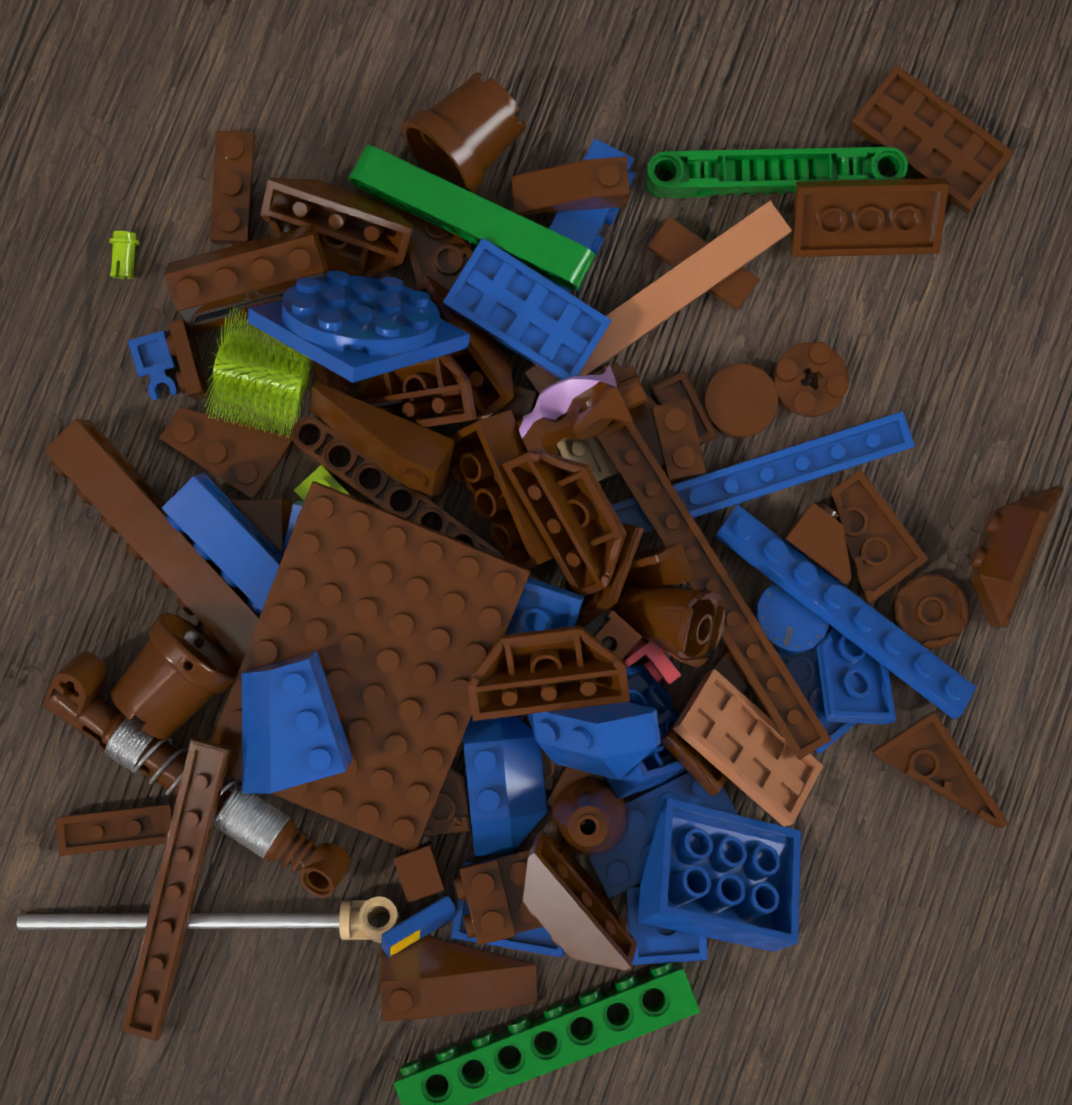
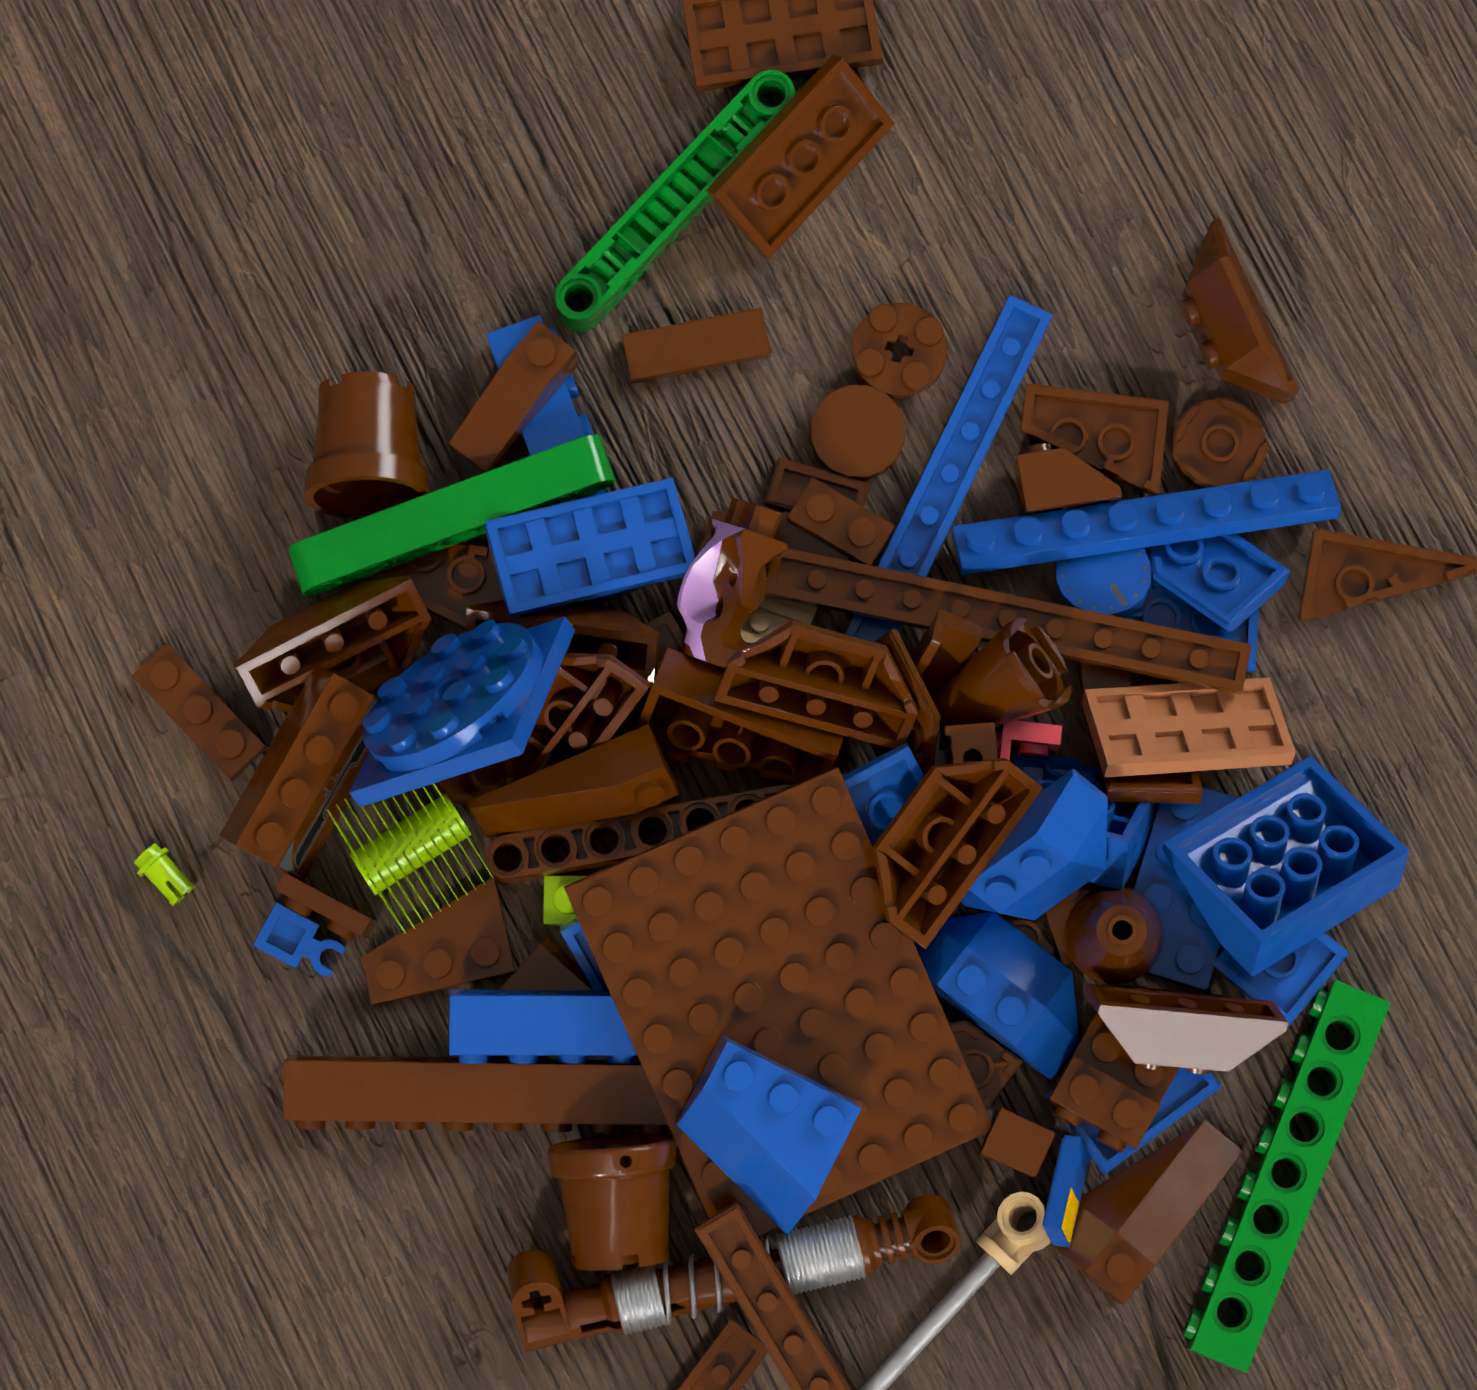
camera: 35 degrees left, 5 degrees down
(680, 287) = (699, 388): nougat tile -> none

